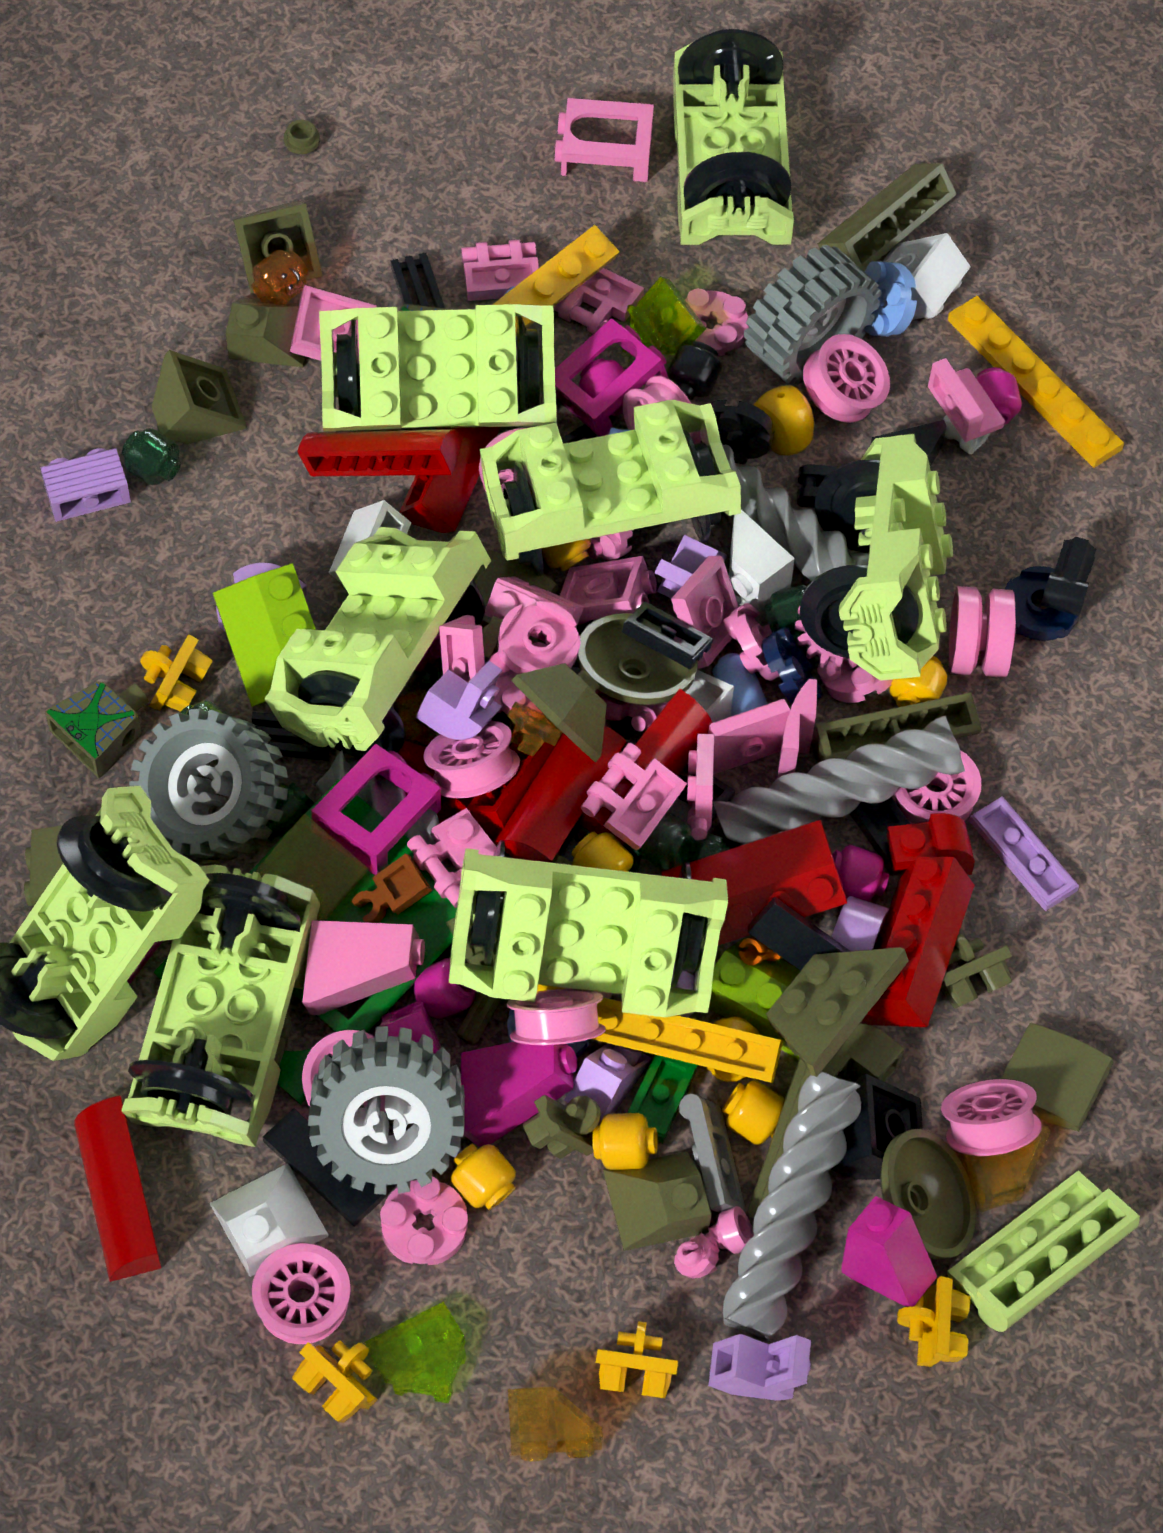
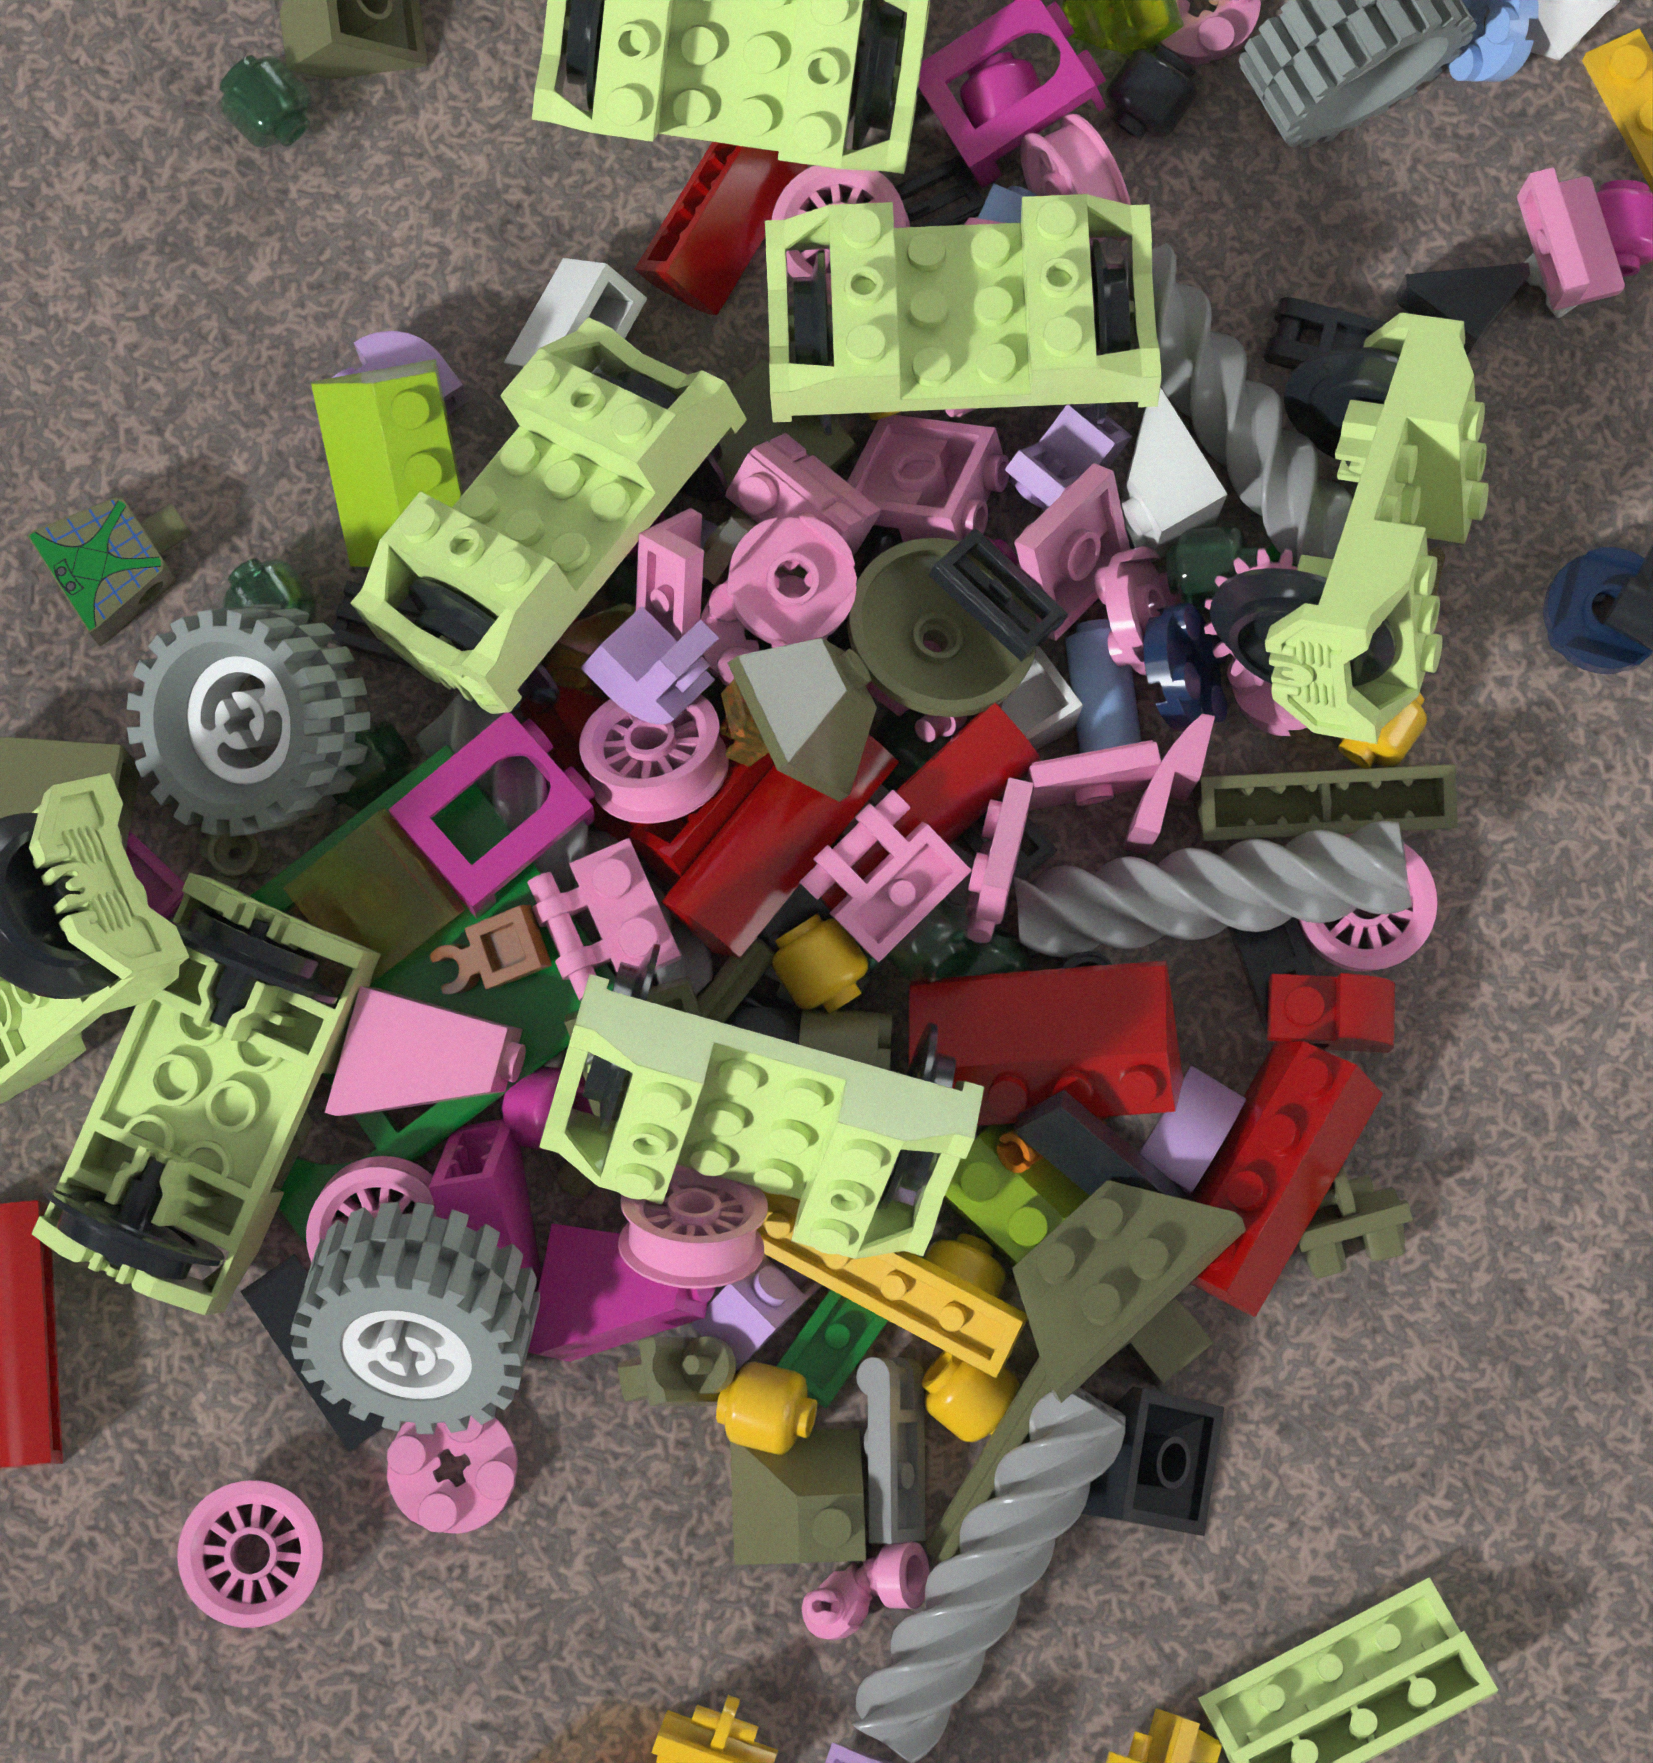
camera: 10 degrees right, 20 degrees up
(85, 483) = (155, 130): lavender brick -> none
(171, 690) = (227, 520): yellow hips -> none
(268, 1217) = (226, 1420): white slope -> none
(322, 1366) = (286, 1688): yellow hips -> none
(380, 452) = (651, 175): red brick -> none
(421, 1354) = (408, 1674): clear neon green slope -> none
(483, 1176) = (550, 1420): yellow head -> none
(743, 429) = (1198, 227): black plate -> none
(790, 417) = (1275, 208): yellow helmet -> none
(846, 378) = (1358, 160): bright pink wheel -> none
(861, 872) = (1214, 1030): dark pink head -> none
(888, 1253) = (1113, 1683): dark pink slope -> none
(931, 1184) = (1194, 1587): olive dish -> none
(985, 632) = (1506, 659): bright pink wheel -> none
(991, 1117) = (1317, 1480): bright pink wheel -> none
(1004, 1176) = (1326, 1555): clear yellow slope -> none
(1024, 853) = (1475, 1034): lavender tile -> none
(1061, 1073) = (1431, 1415): olive slope -> none

